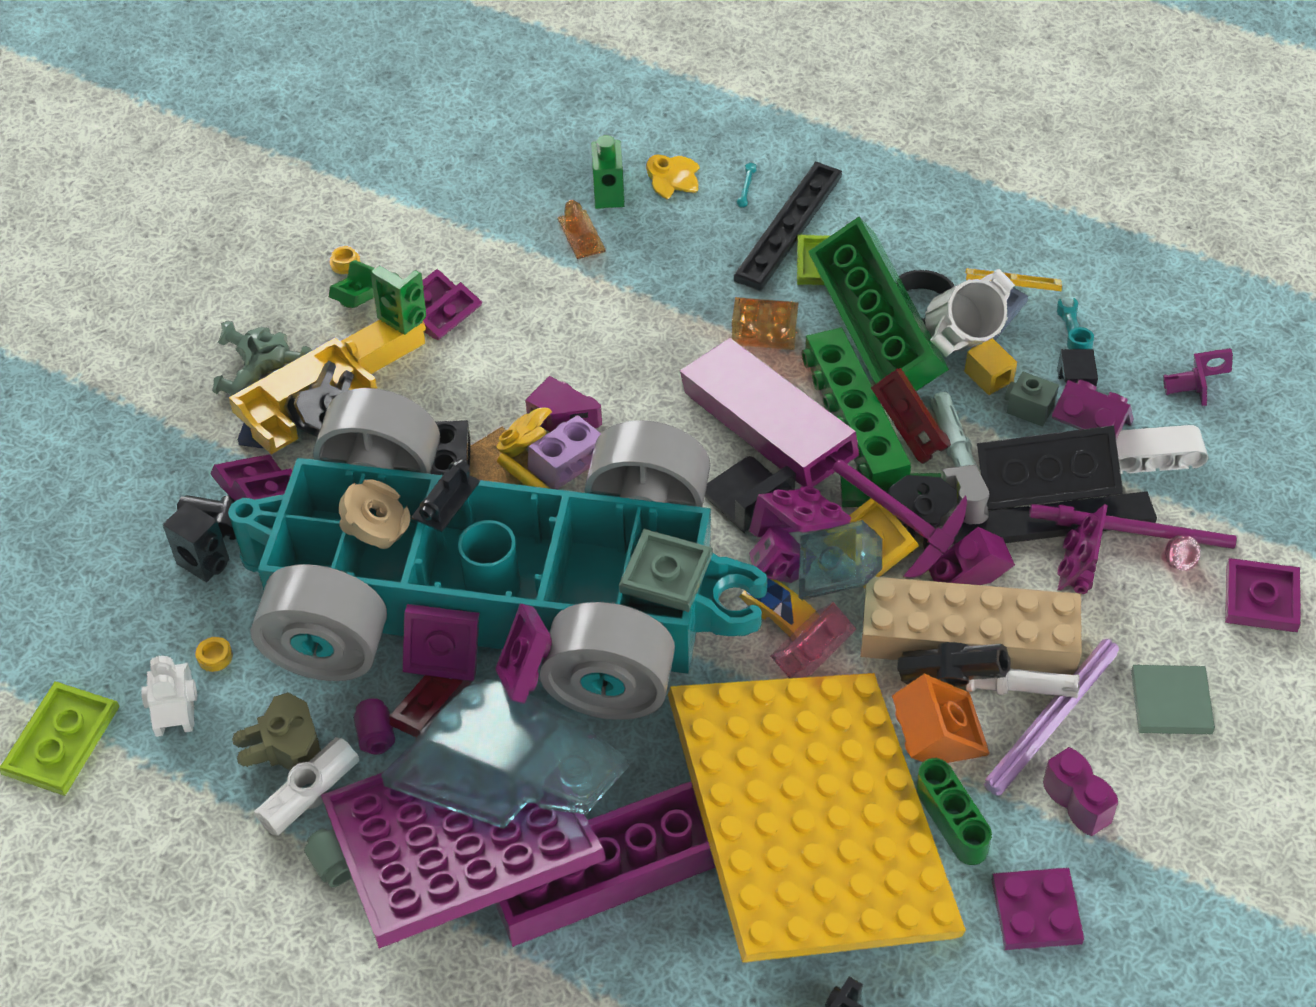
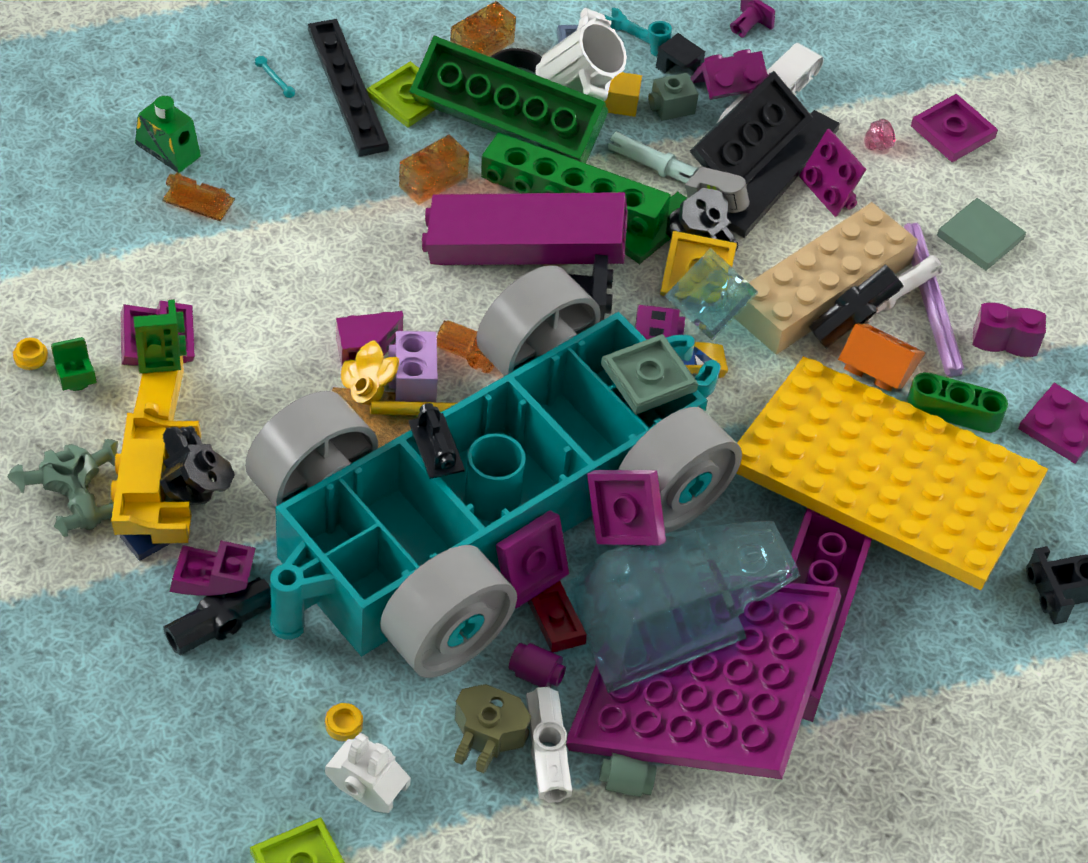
camera: 55 degrees left, 0 degrees up
(196, 542) = (236, 648): black brick -> none
(359, 521) = (393, 500): tan plate -> none
(672, 174) = (210, 105): yellow plate -> none
(796, 512) = (646, 274): magenta bracket -> none
(813, 642) = (750, 364): clear pink brick -> none
(910, 415) = (620, 159): dark red plate -> none
(935, 249) = (486, 30): none -> clear orange brick
(938, 539) = (745, 232): magenta piece -> none
(974, 560) = (772, 237): magenta slope -> none
(1019, 280) = (560, 20): yellow window -> none
(1067, 516) = (796, 159): magenta bar -> none

